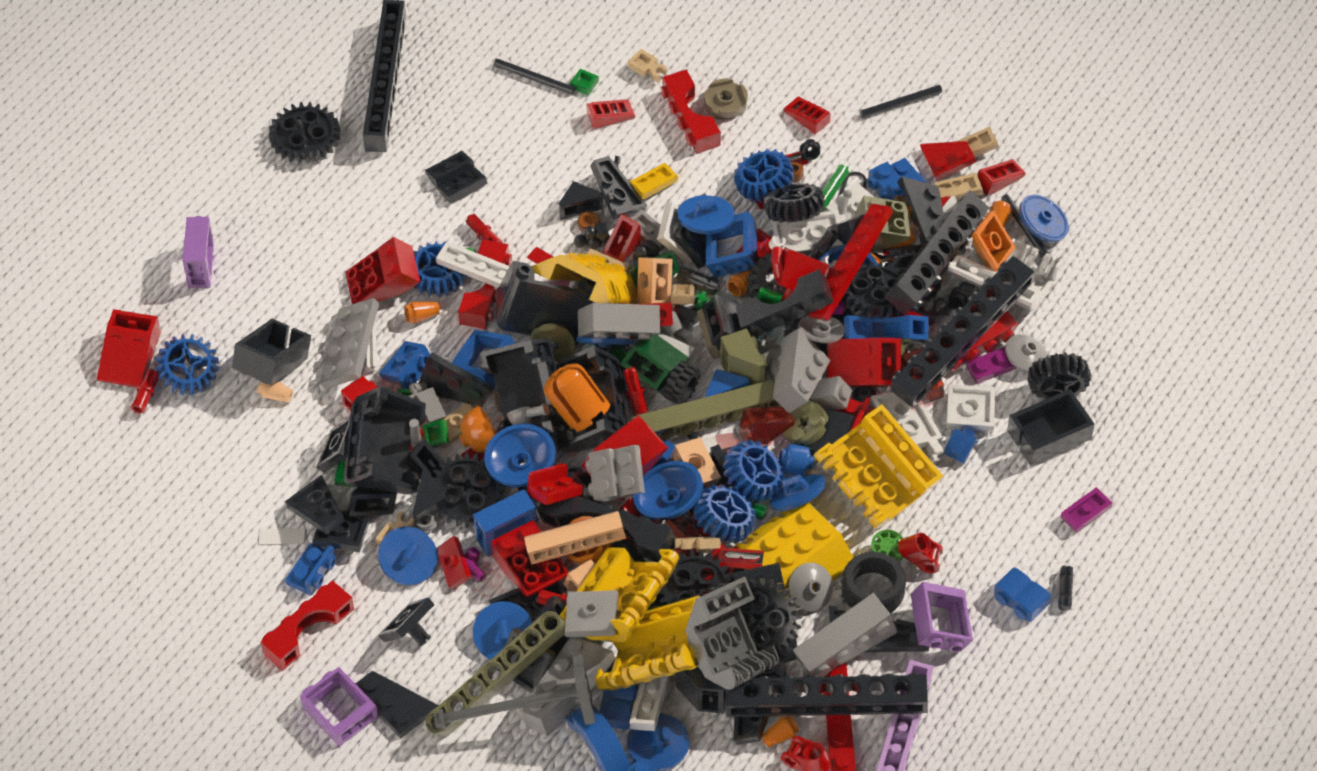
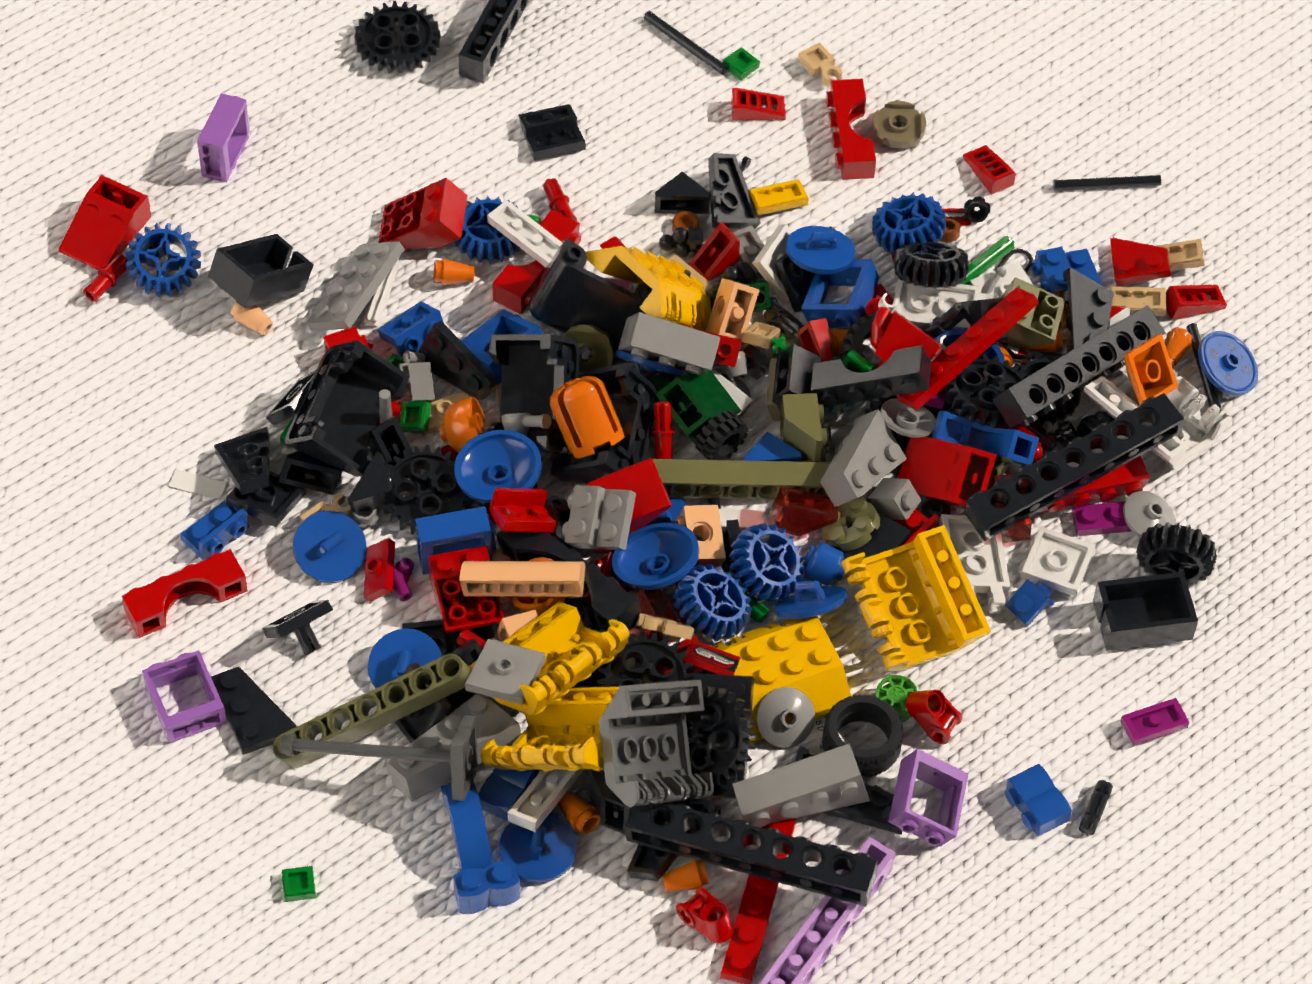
camera: 15 degrees right, 0 degrees up
(680, 707) = (580, 814): none -> orange cone
(726, 285) = (815, 338): none -> red slope

